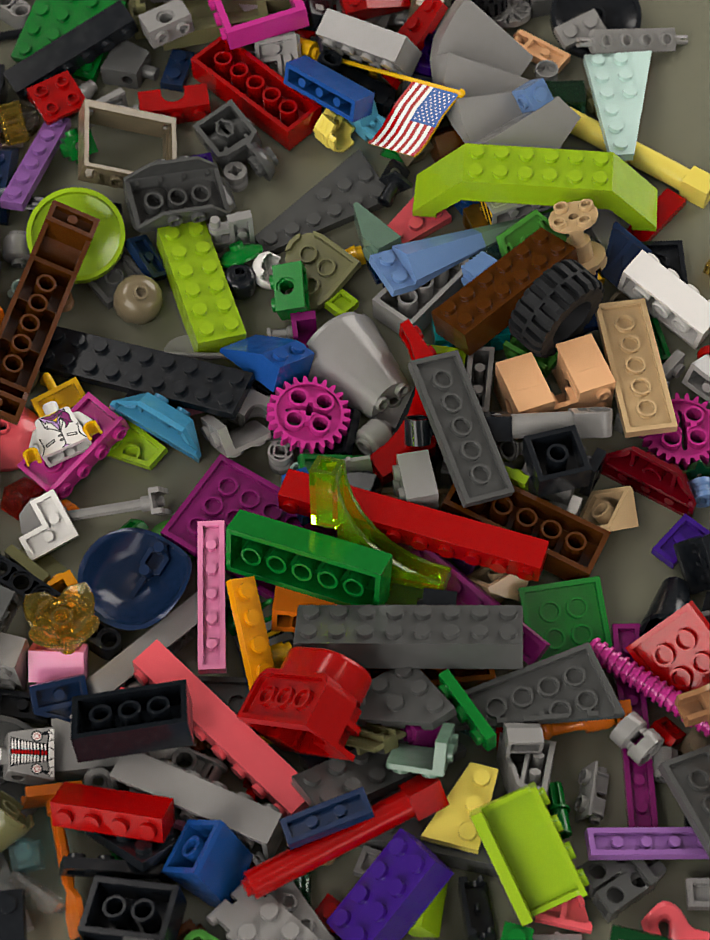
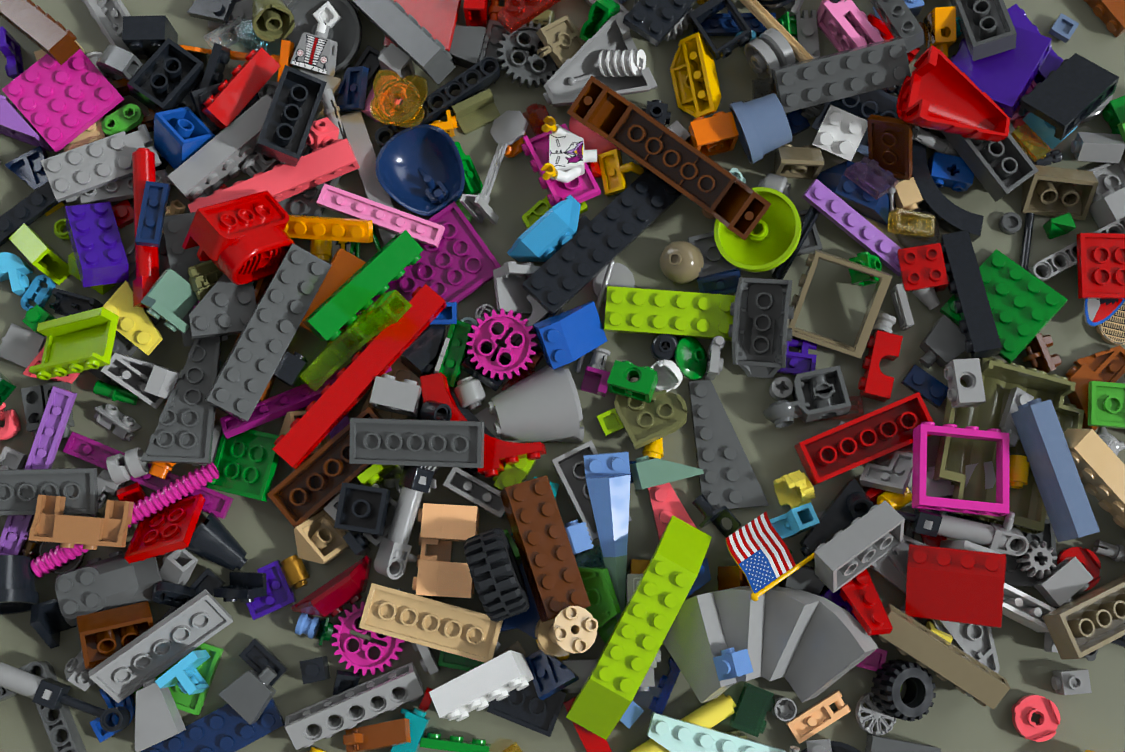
camera: 110 degrees right, 20 degrees up
(55, 528) = (493, 128): white plate -> none
(329, 88) = (824, 491): blue brick -> none
(466, 711) = (194, 348): green plate -> none
(654, 527) = (295, 572): none -> pearl gold brick

